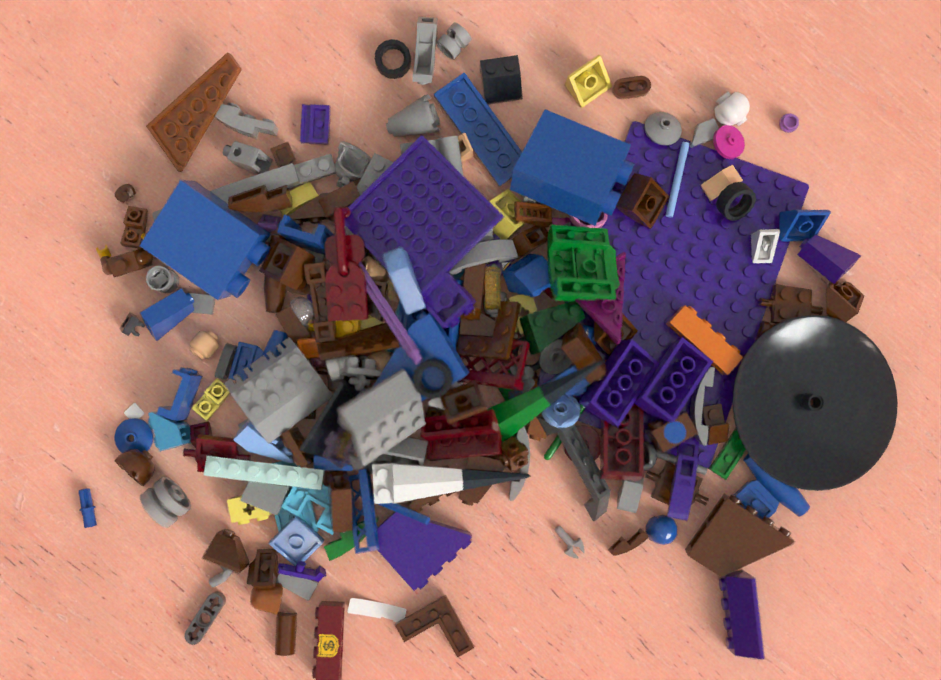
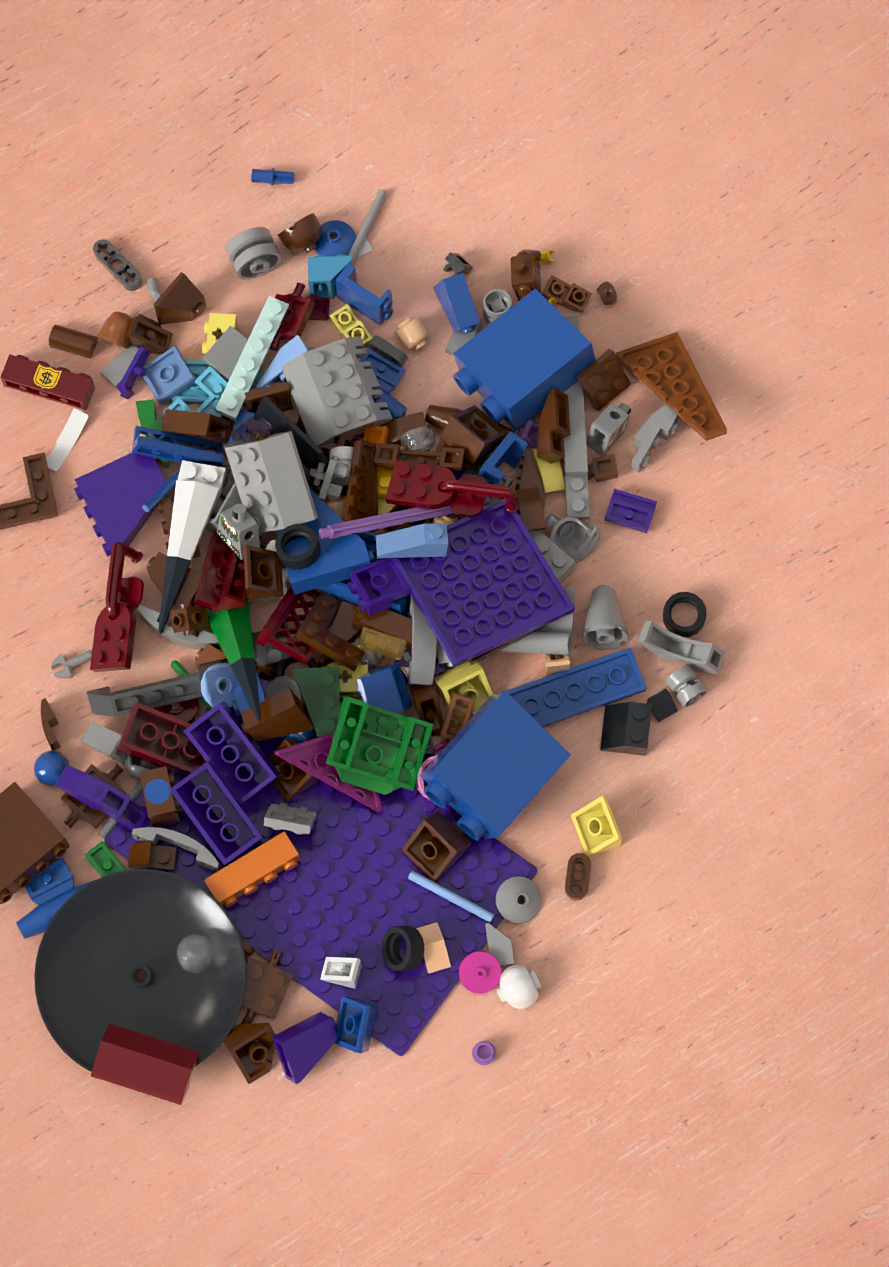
camera: 110 degrees right, 15 degrees down
(112, 413) = (367, 224): none -> light grey bar
(206, 172) = (603, 379): none -> reddish brown plate
(427, 436) = (238, 529): none -> light grey torso
(472, 58) = (662, 705): none -> black slope
(528, 516) = (117, 621): none -> dark red plate
(659, 321) = (290, 818): none -> light grey plate
(791, 363) = (194, 953): none -> clear hair
(884, 376) = (145, 1064): none -> dark red slope

